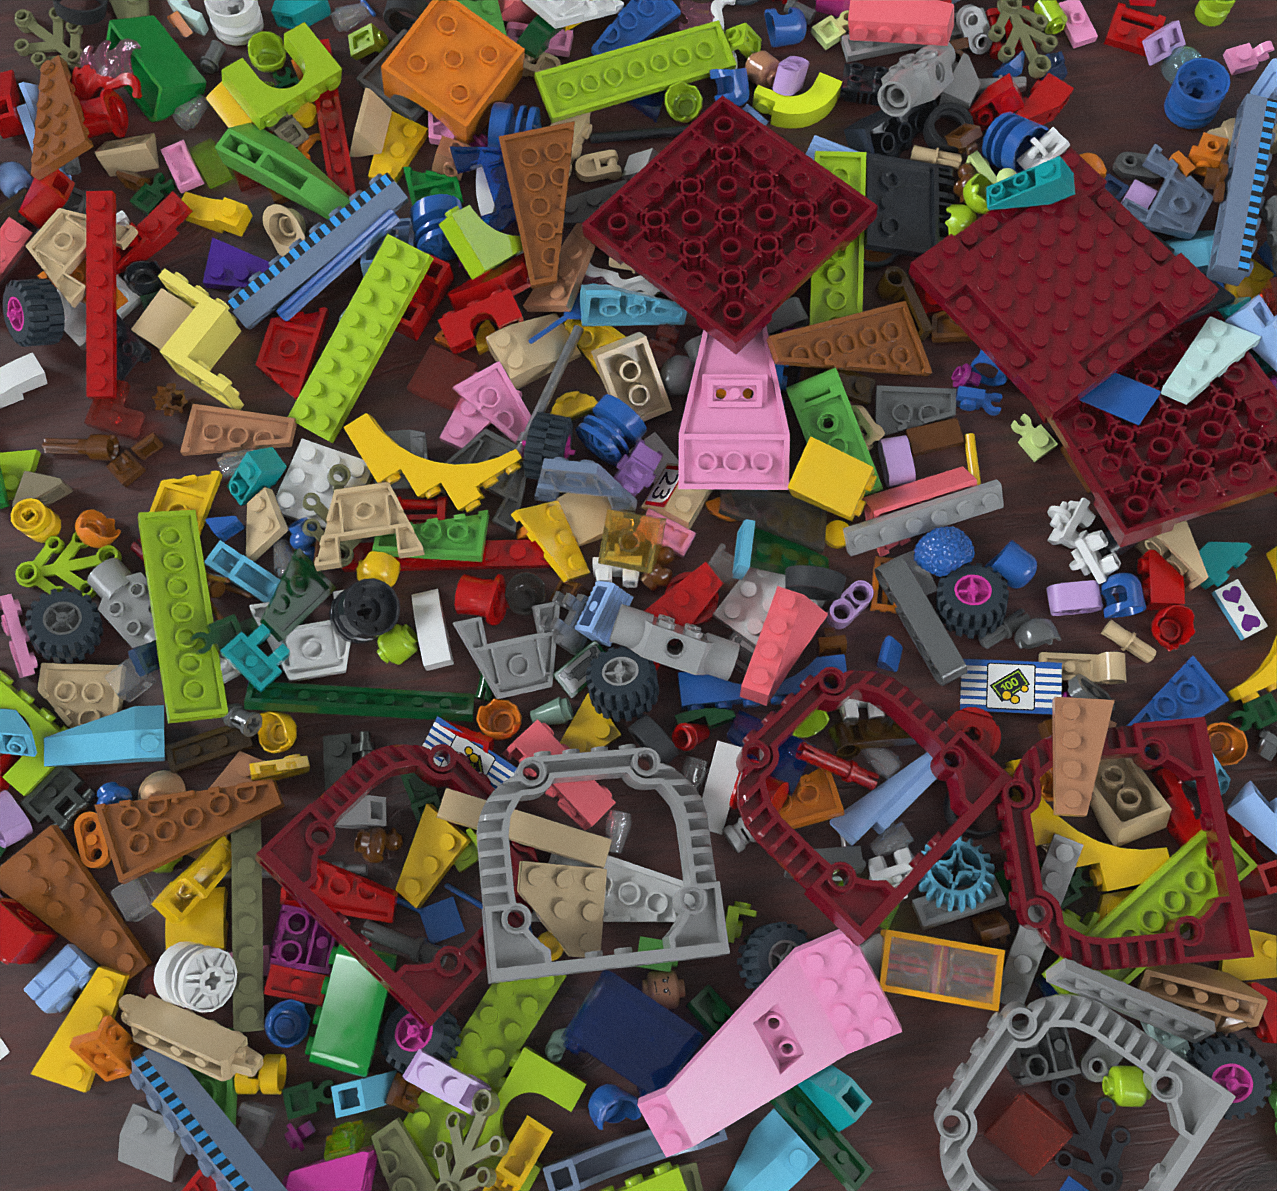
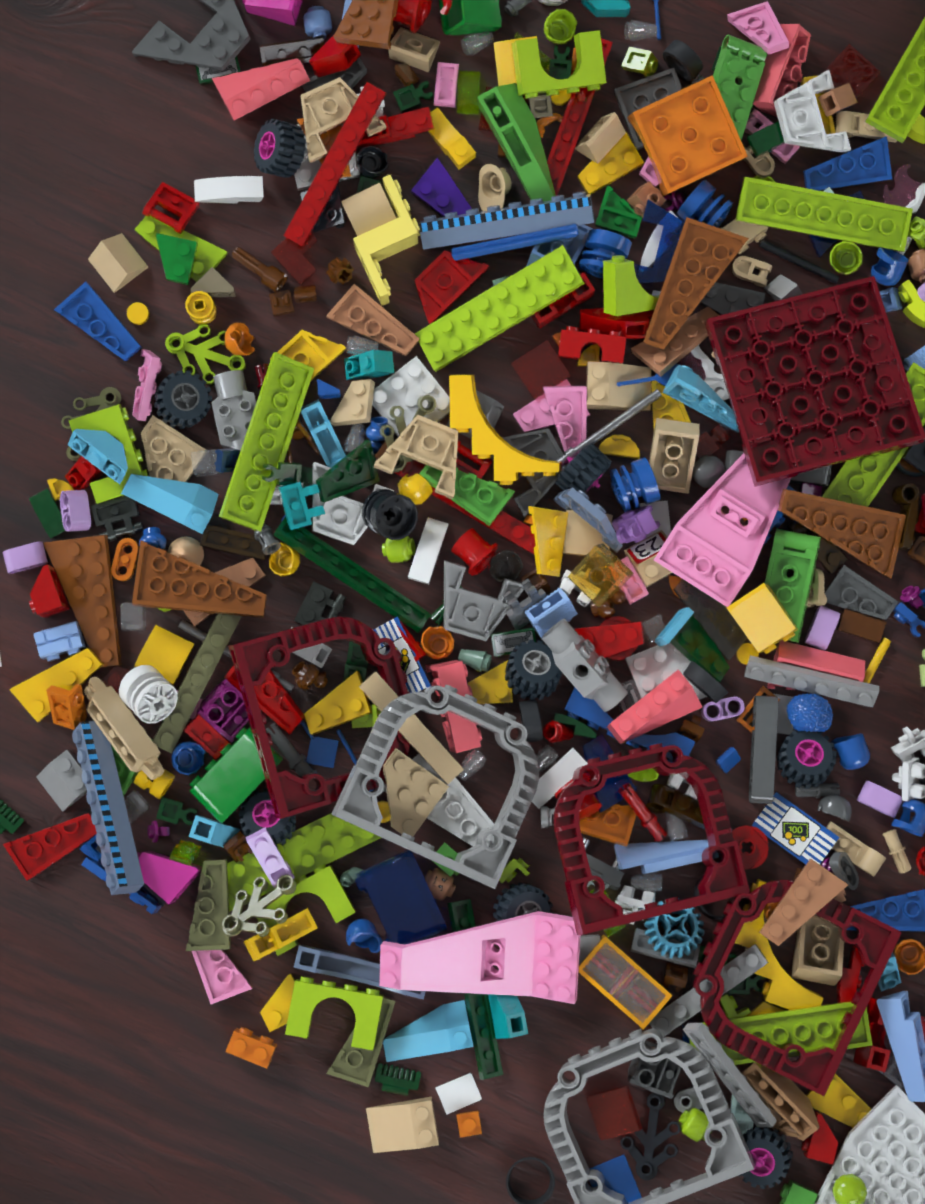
camera: 30 degrees right, 10 degrees up
(195, 882) = (178, 631): yellow slope -> none
(280, 769) = (281, 589): yellow wing -> none

